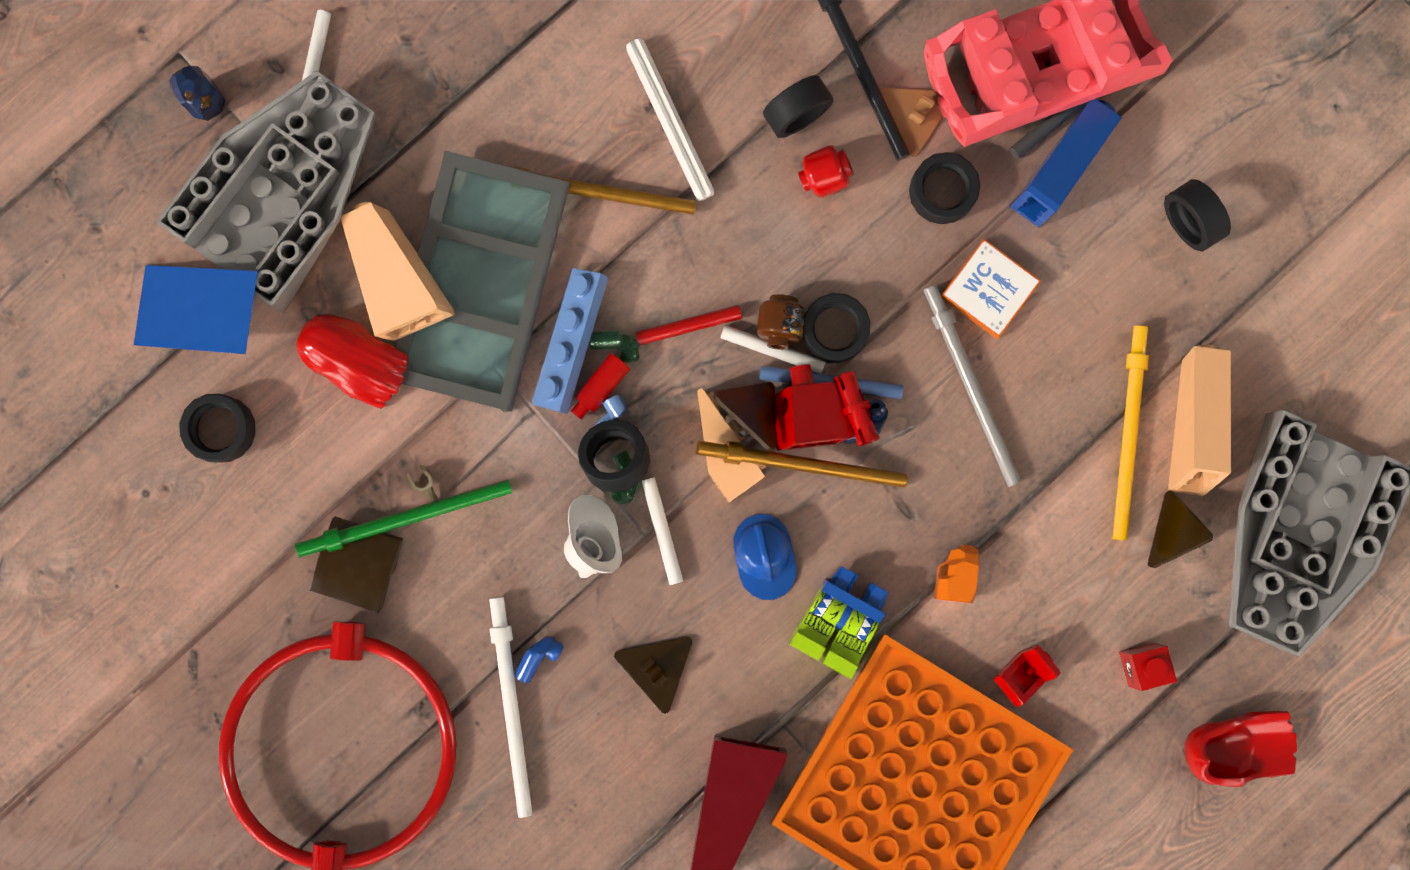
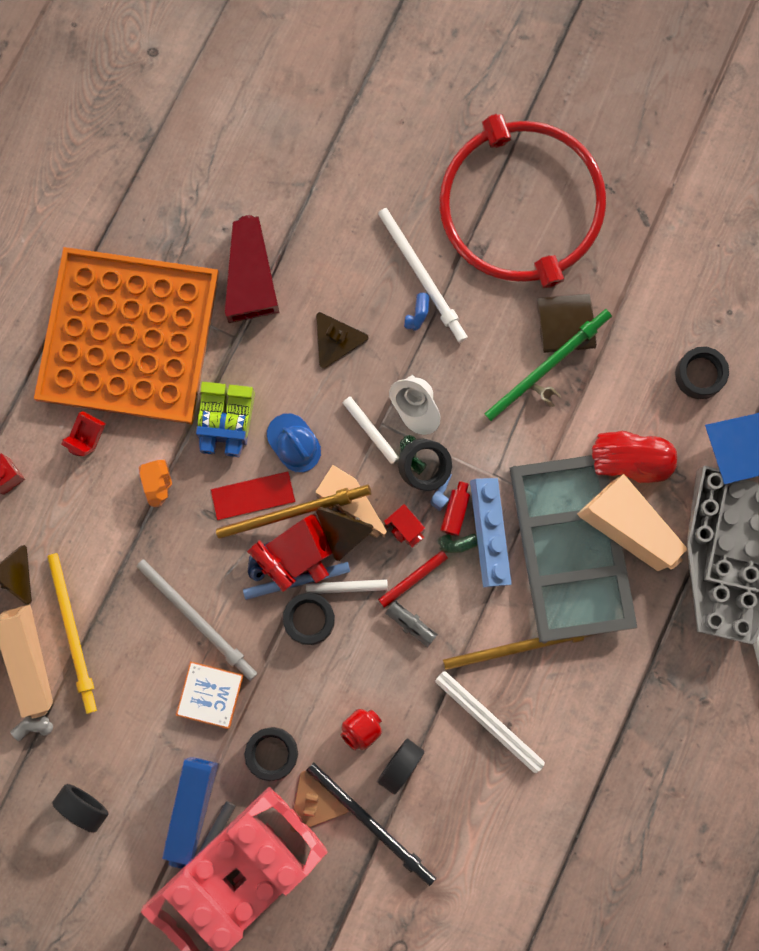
camera: 160 degrees right, 5 degrees down
(671, 390) = (405, 526): none -> red brick
(713, 271) = (411, 623): none -> dark grey pin
(780, 321) = (349, 606): reddish brown head -> none
(842, 511) = (252, 495): none -> red sticker
(1207, 335) = (29, 725): none -> light grey arm

